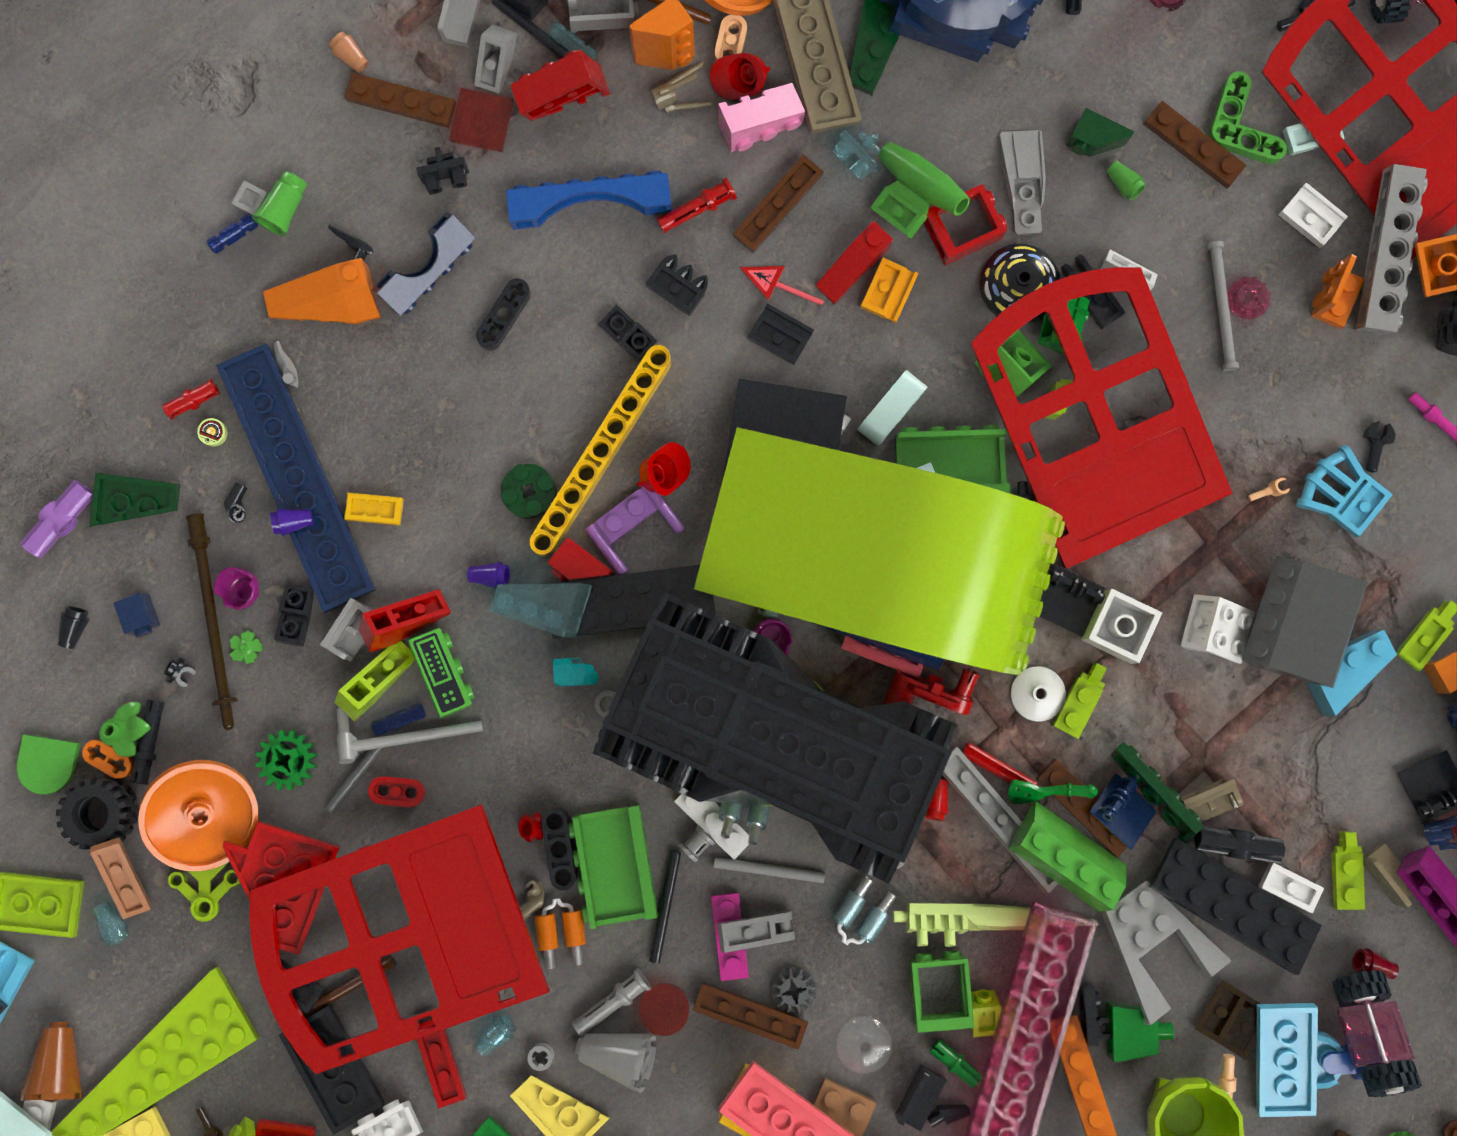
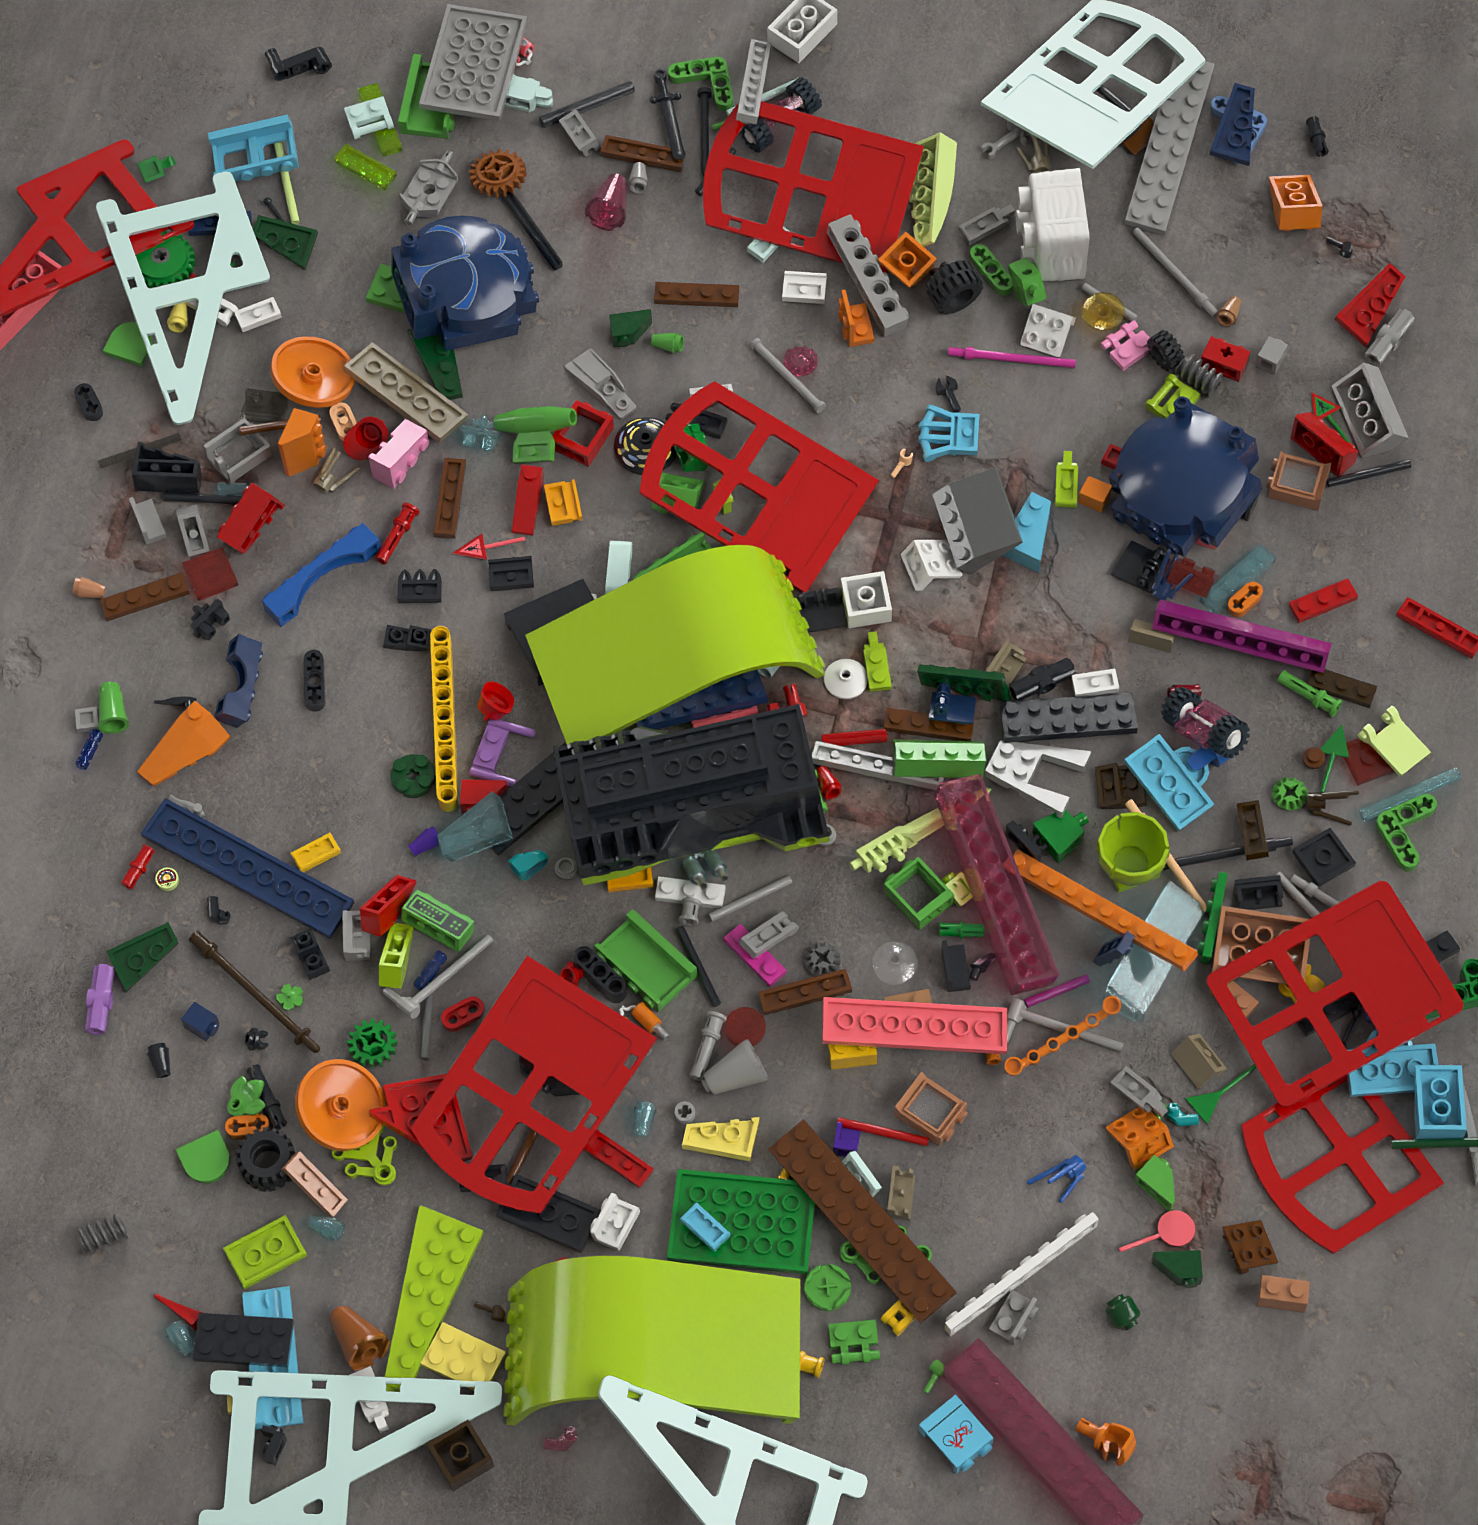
camera: 30 degrees left, 20 degrees down
(237, 587) = (258, 958): magenta hair -> none
(290, 520) = (265, 890): dark purple cone -> none
(850, 909) = (821, 886): clear light blue piece -> none
(1025, 792) = (888, 732): green piece -> none
(1231, 125) = (712, 269): bright green beam -> none
(1348, 873) = (1126, 652): lime hinge -> none

